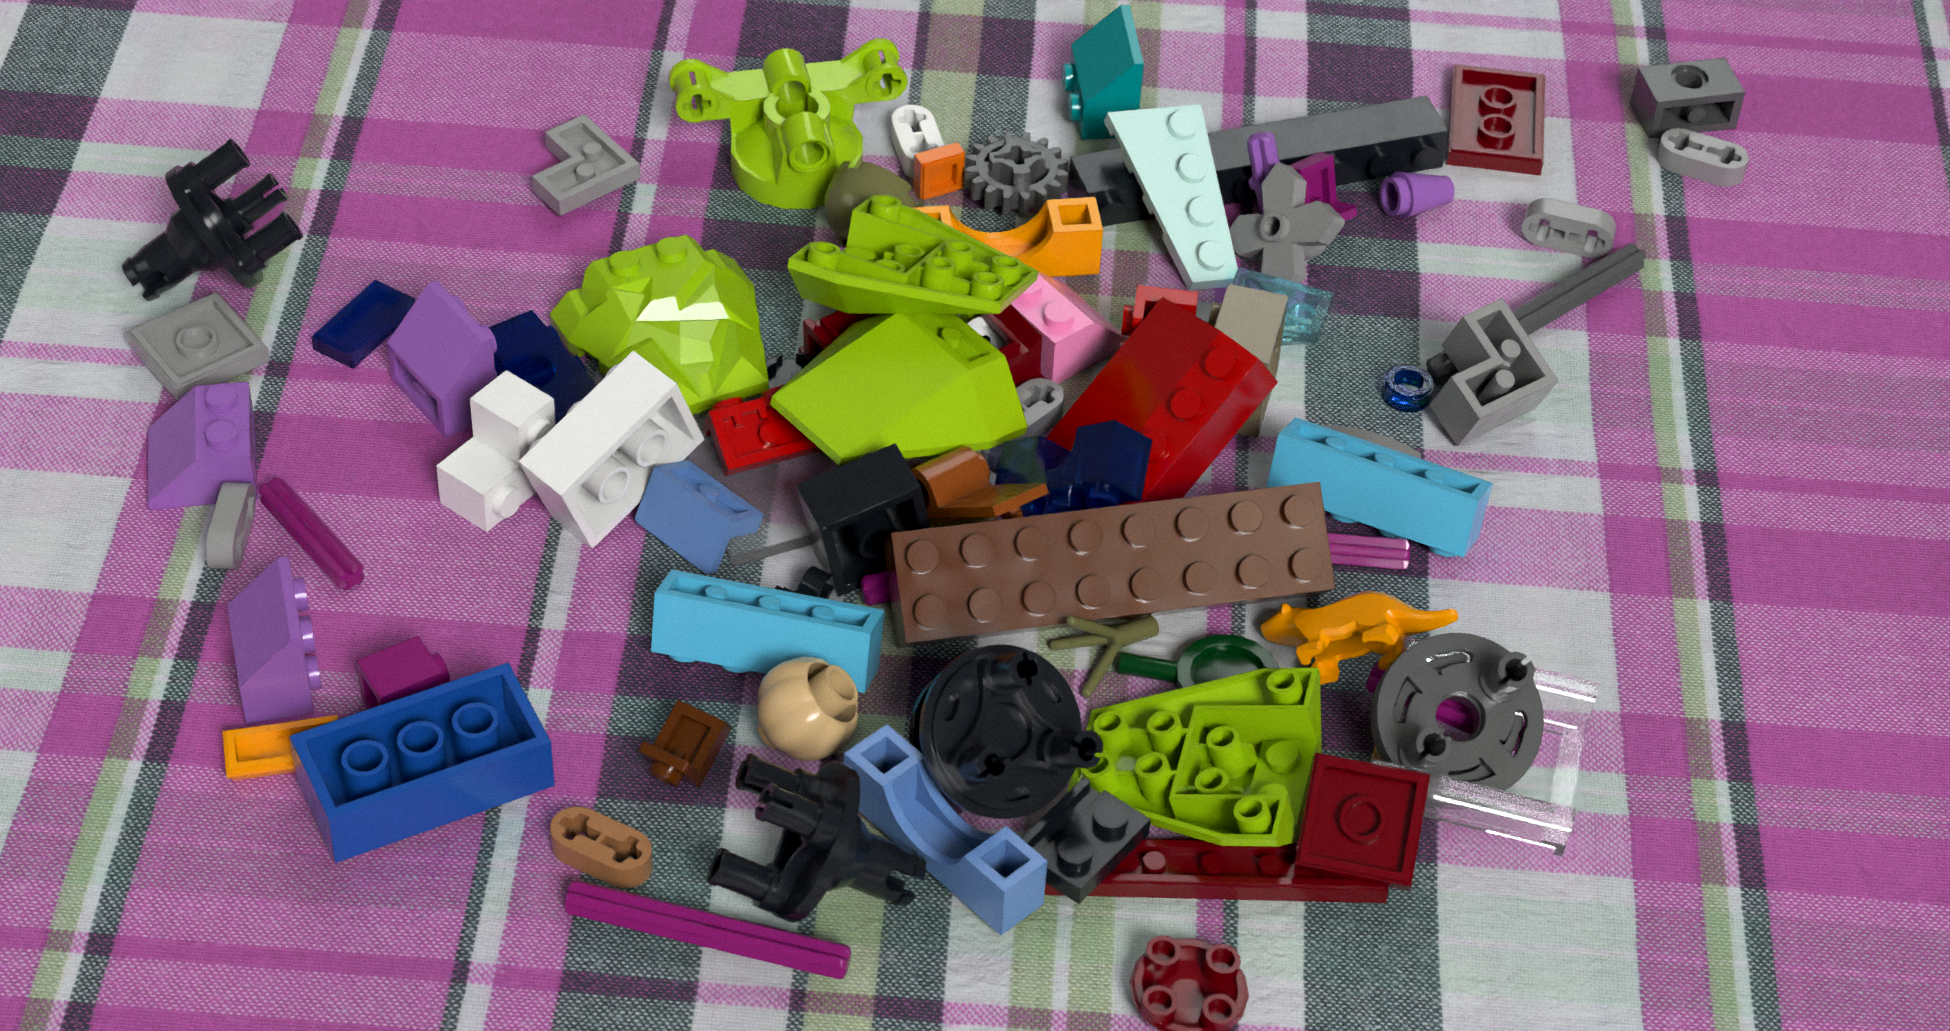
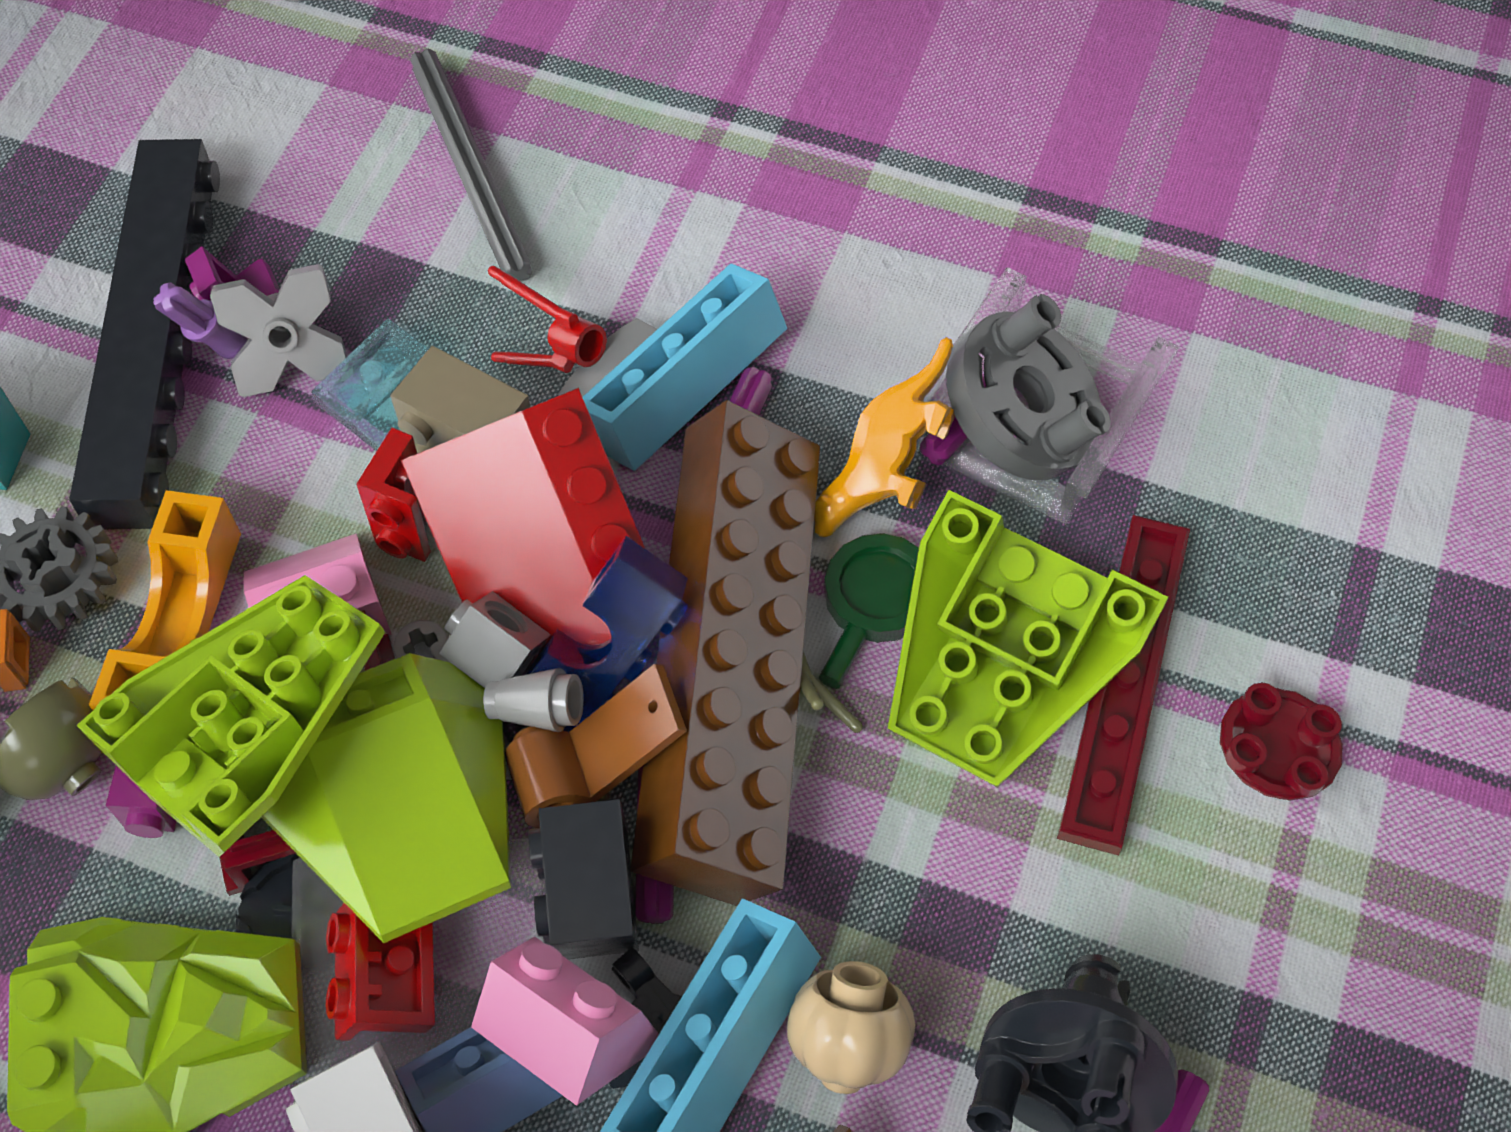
camera: 70 degrees left, 15 degrees up
(752, 521) = (560, 1020): none -> bright pink slope
(989, 873) = (1011, 948): medium blue arch -> none
(1000, 445) = (536, 699): none -> light grey cone
(1001, 732) = (969, 828): black piece -> none
(1048, 410) = (492, 640): none -> light grey brick
(1086, 838) = (1087, 787): black plate -> none
(1180, 185) = (152, 399): light aqua wing -> none
(1362, 821) = (1134, 516): dark red tile -> none
(1368, 405) = (570, 336): none -> red plant
(1407, 388) = (521, 313): clear blue tile -> none
(1414, 193) = (259, 206): medium lavender cone -> none
(1496, 119) = (172, 98): tile -> none
(1497, 374) = (569, 211): light grey brick -> none
(1569, 227) = (368, 95): light grey beam -> none

